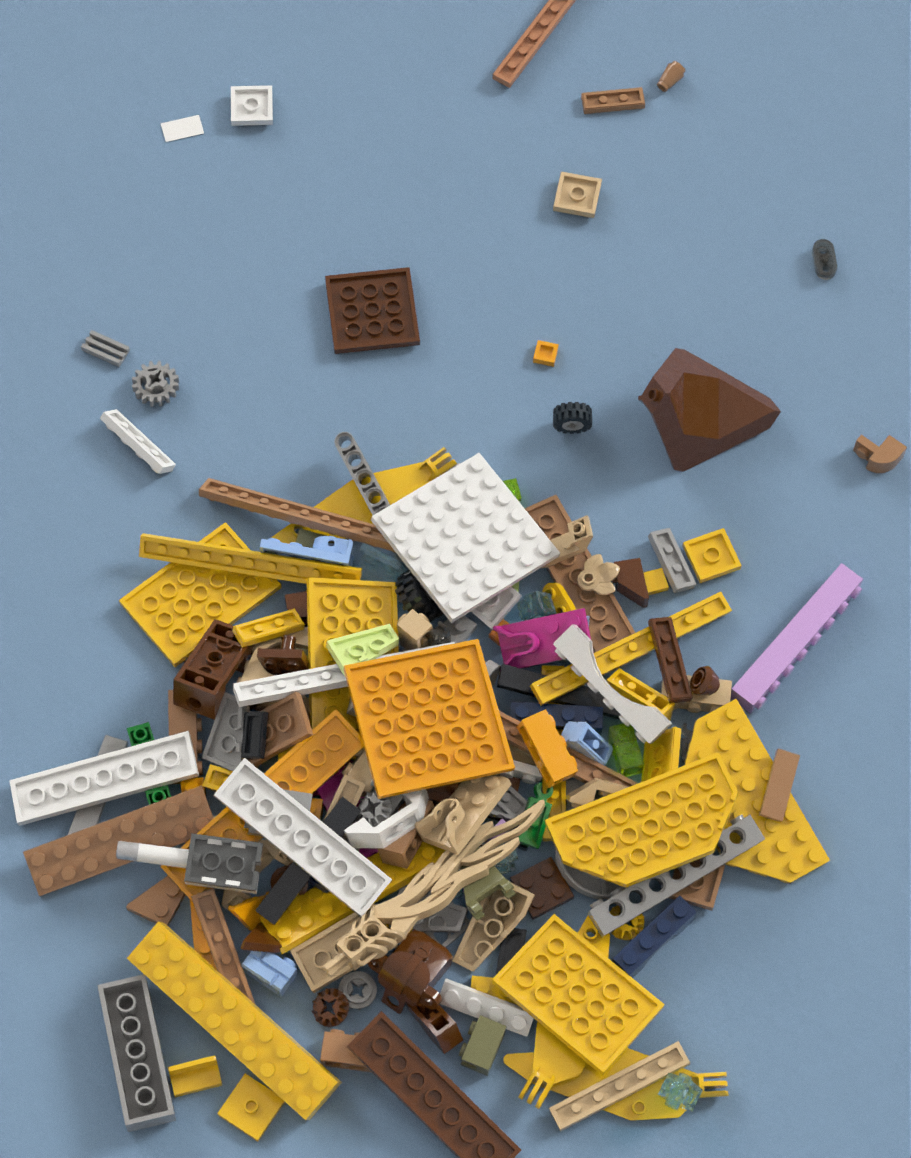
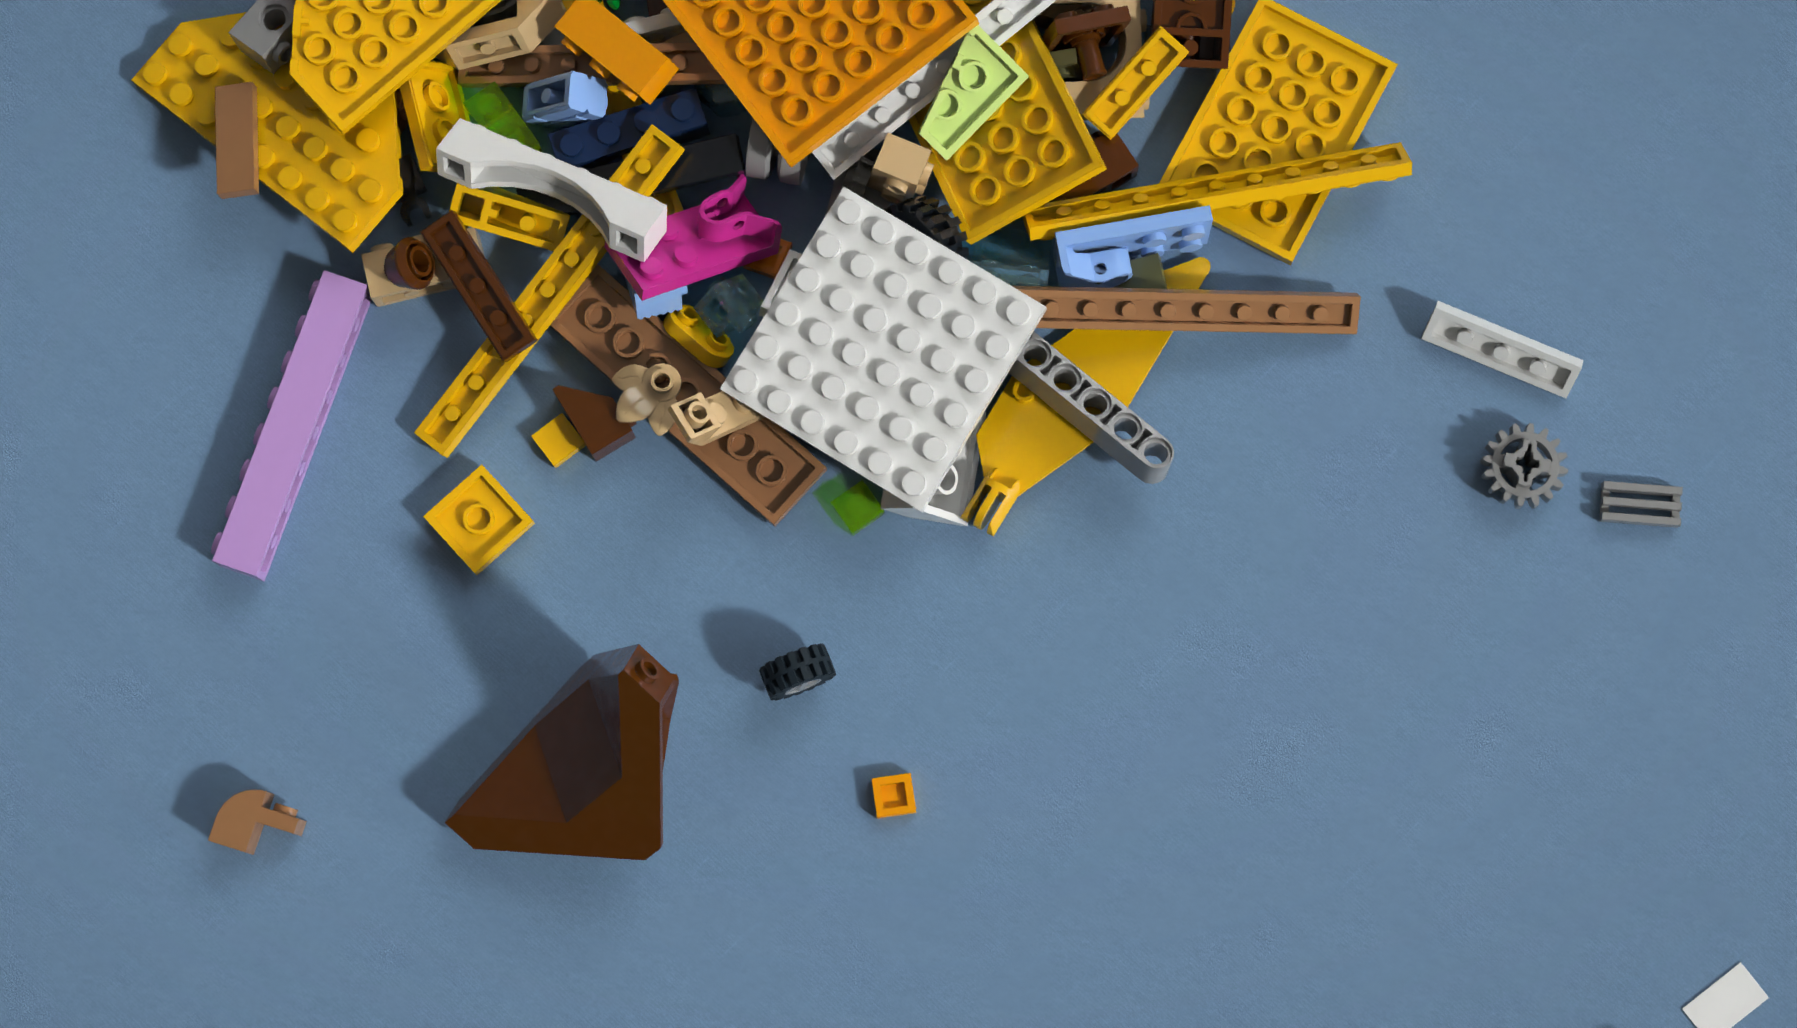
camera: 165 degrees right, 15 degrees up
(372, 310) = (1224, 755): reddish brown plate -> none
(672, 560) = (541, 484): light grey plate -> none

